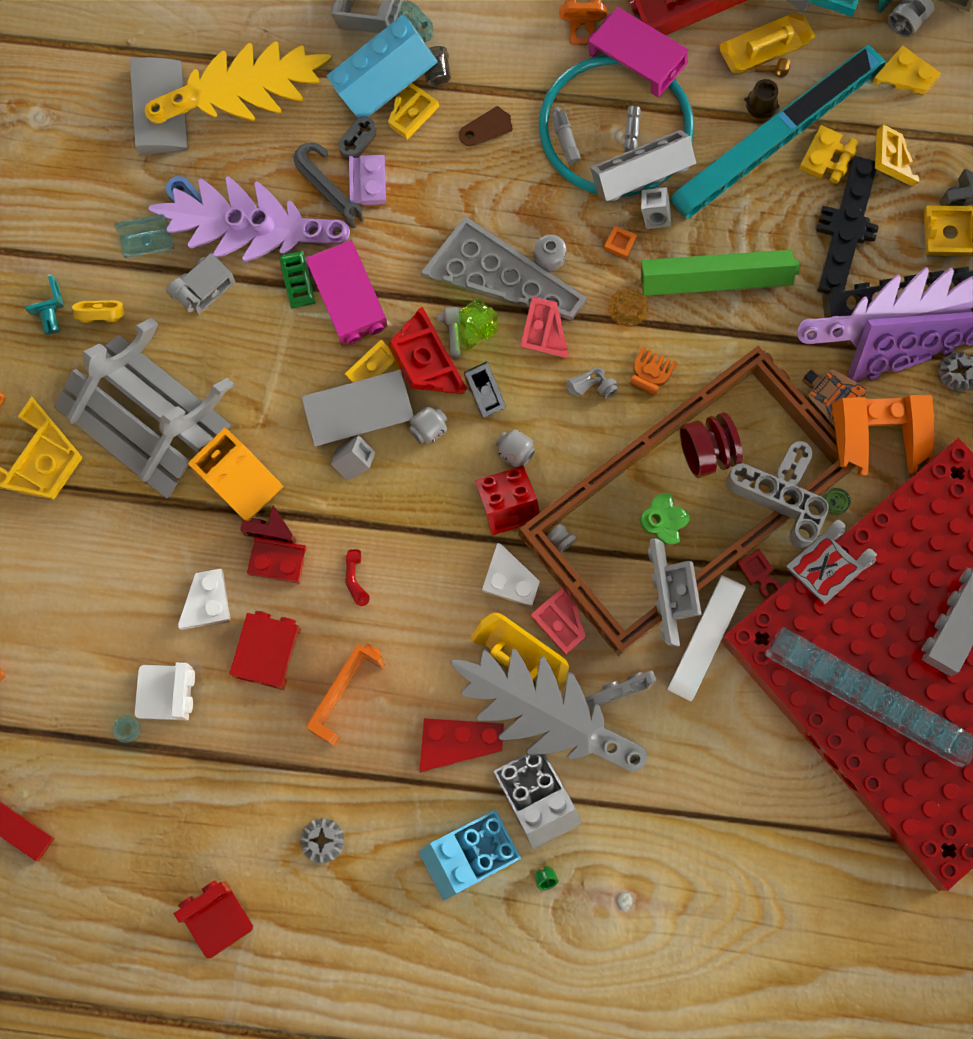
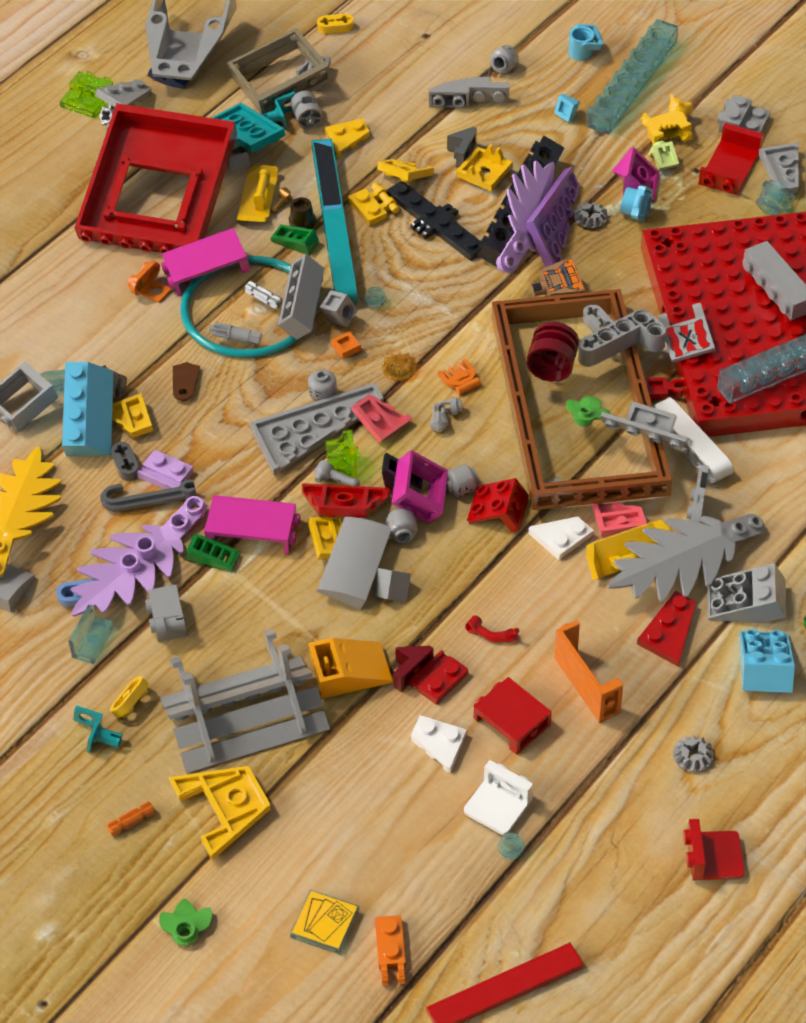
camera: 60 degrees left, 25 degrees down
(484, 434) = (404, 497): none -> dark pink window
(703, 225) = (375, 296): none -> clear light blue plate
(718, 272) = (415, 301): bright green brick -> none
(731, 126) = (297, 238): none -> green slope
(856, 414) = (591, 271): orange wedge -> none

